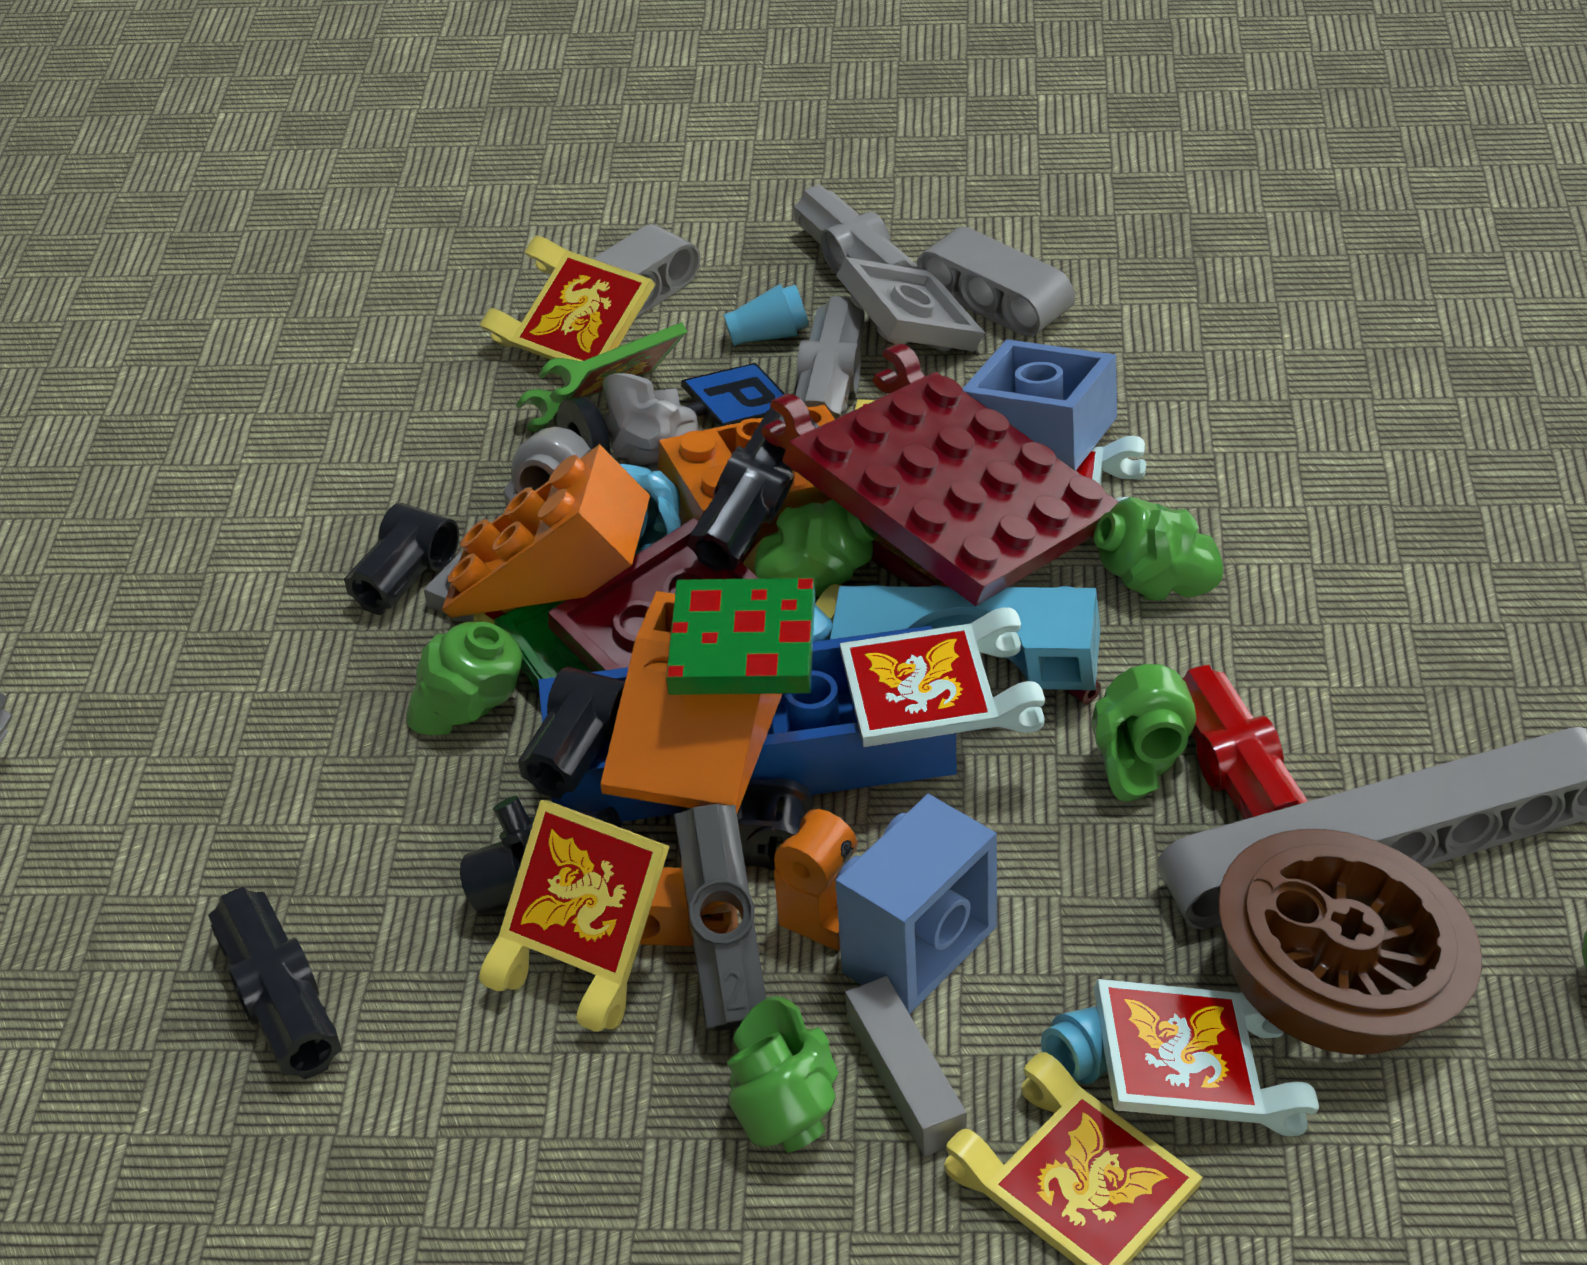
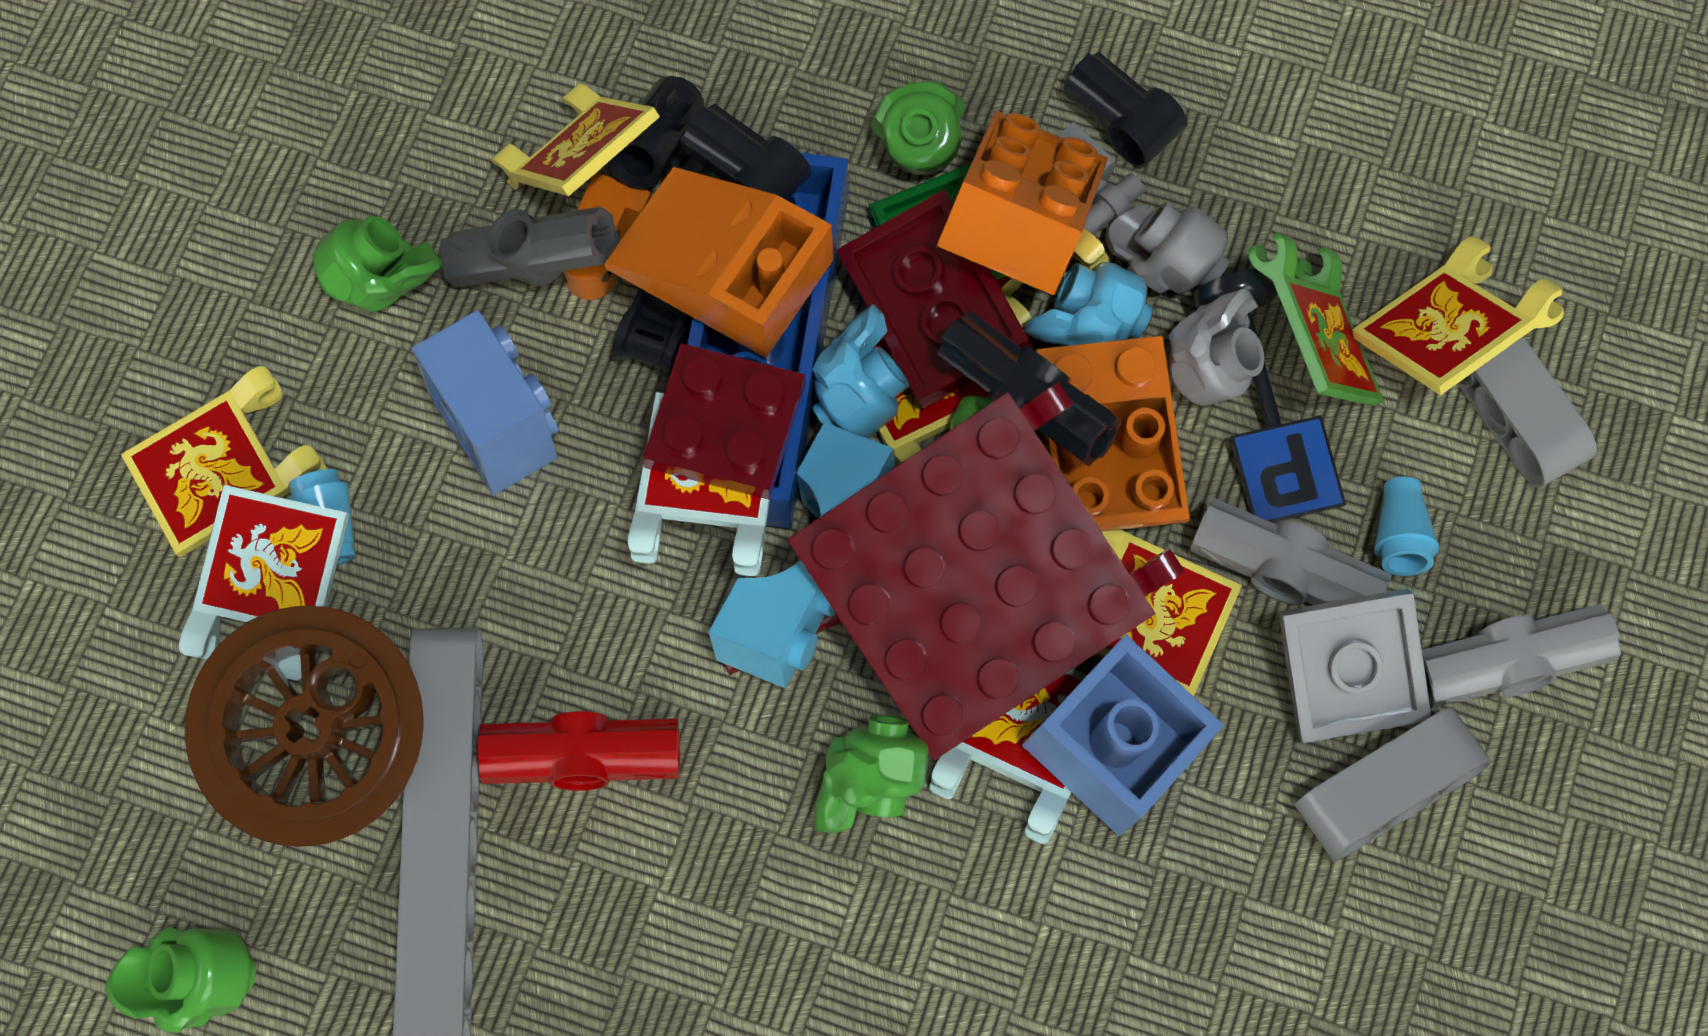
camera: 105 degrees right, 25 degrees up
(742, 636) = (727, 271): green tile -> none
(808, 874) = (559, 344): orange leg -> none
(878, 669) = (724, 421): none -> dark red plate
(905, 1065) = (353, 372): light grey piece -> none
(1142, 727) = (628, 665): bright green head -> none

